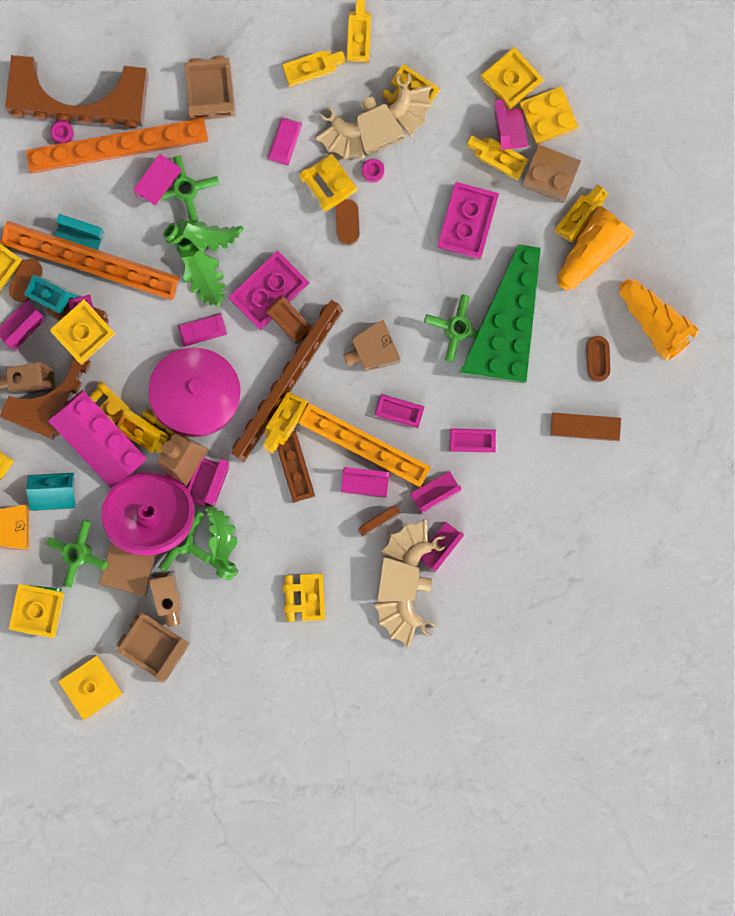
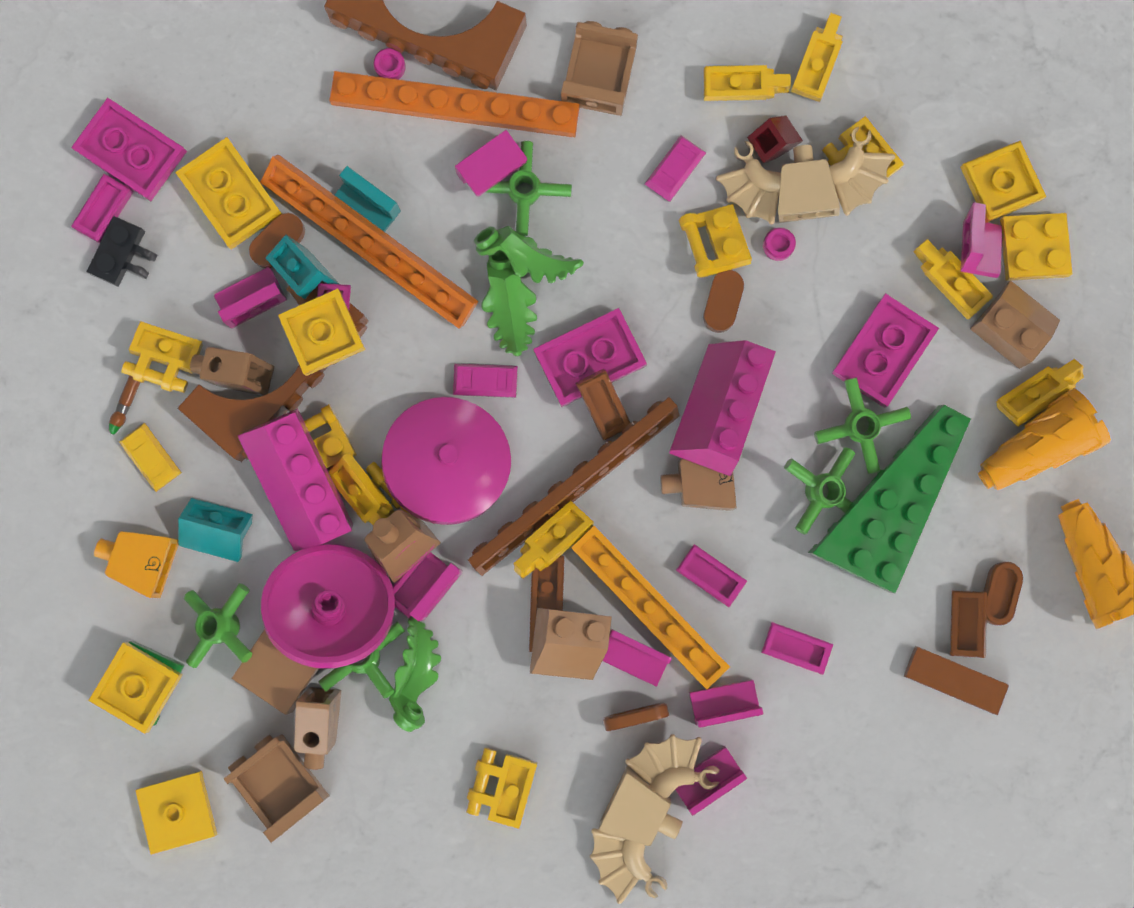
camera: 20 degrees right, 0 degrees up
(318, 486) = (569, 643): none -> medium nougat slope
(346, 98) = (774, 138): none -> dark red brick
(368, 292) = (722, 405): none -> dark pink slope
(476, 270) = (875, 424): none -> bright green bar
(581, 386) = (968, 624): none -> dark orange tile

